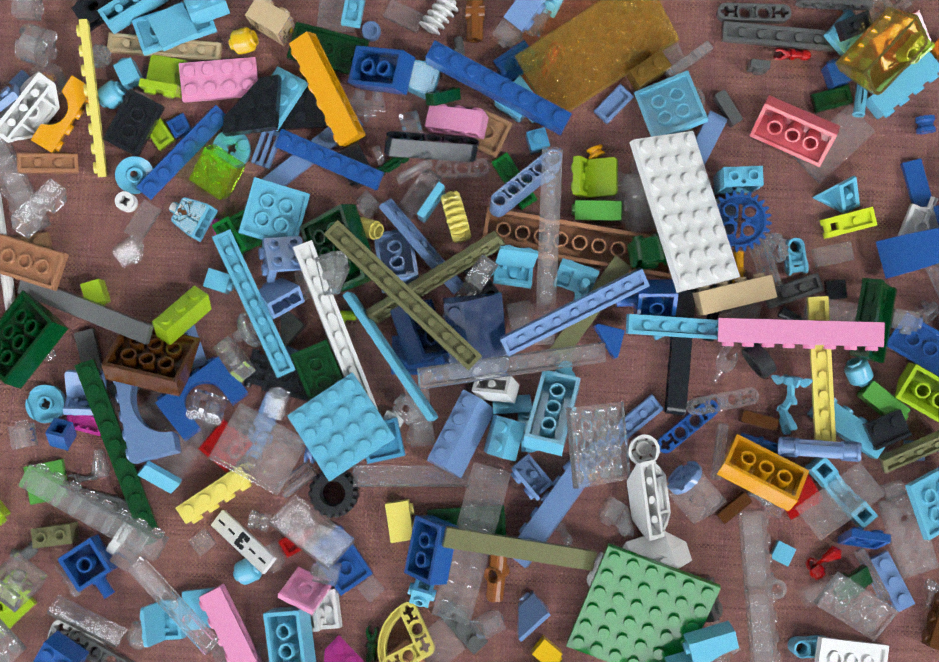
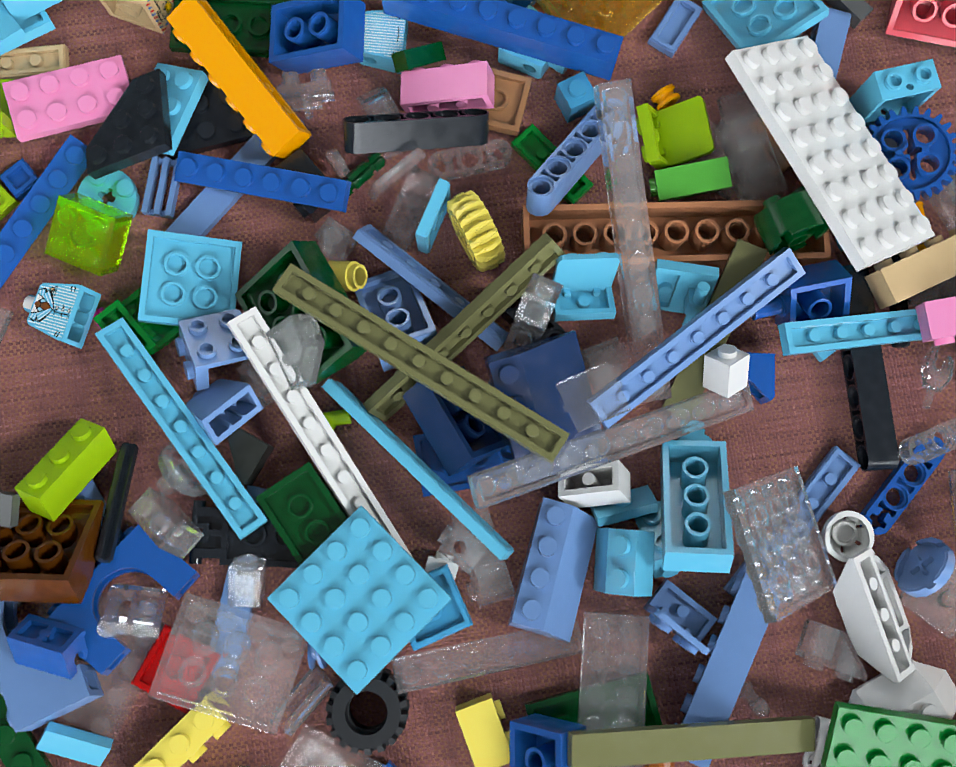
camera: 20 degrees left, 5 degrees down
(156, 416) = (47, 645): none -> blue hinge
(207, 340) = (116, 503): none -> black axle
(218, 281) = (119, 405): medium azure brick -> none
(243, 40) = (98, 33): yellow head -> none
(502, 335) = (592, 396): none -> clear piece
(590, 334) = (726, 370): none -> white brick

